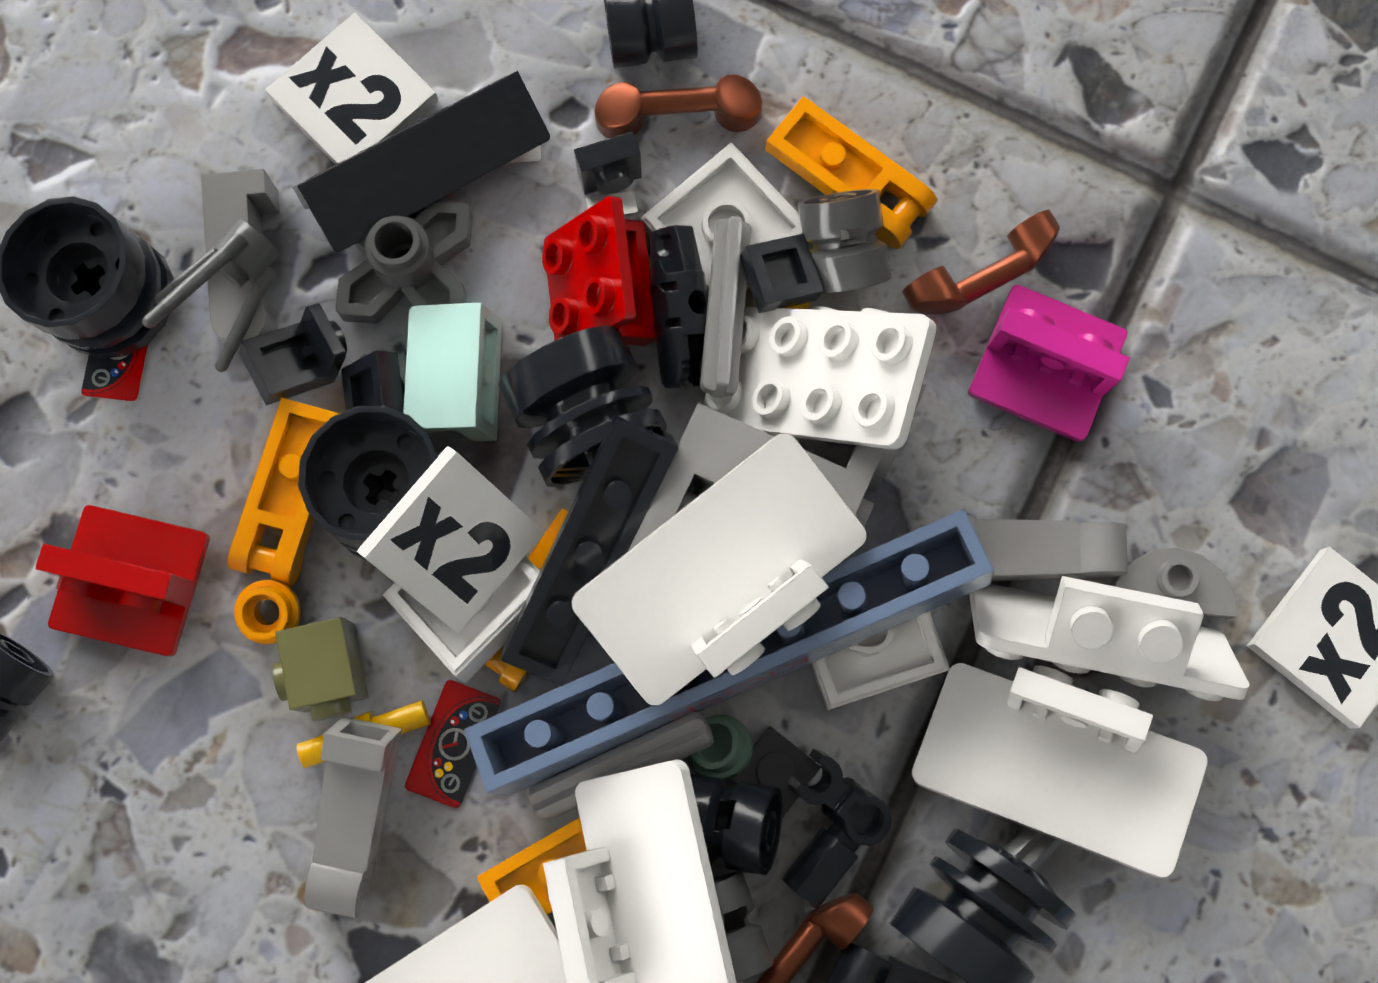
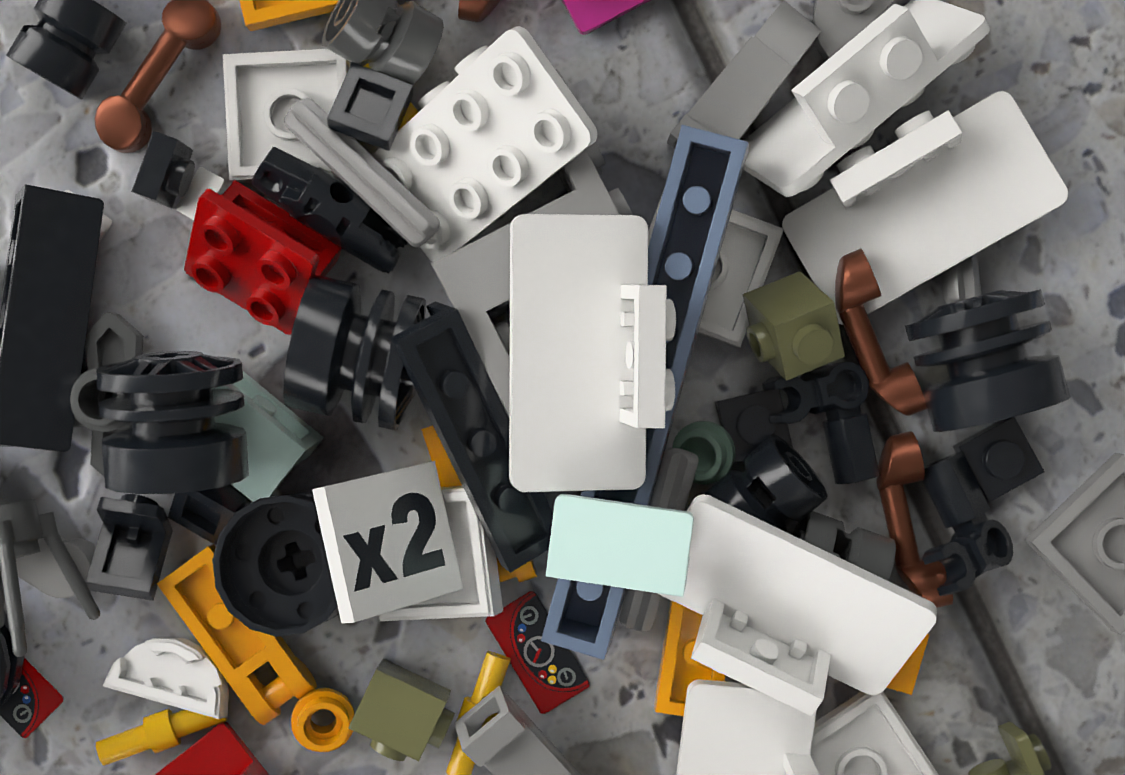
camera: 50 degrees left, 10 degrees up
(164, 492) = (158, 732): none -> yellow bar
(217, 465) = (172, 674): none -> white plate
(417, 304) = (173, 428): none -> black wheel
(592, 724) = (620, 544): none -> light aqua panel
(879, 735) = (793, 326): none -> olive brick
(948, 761) = (854, 287): none -> copper bar

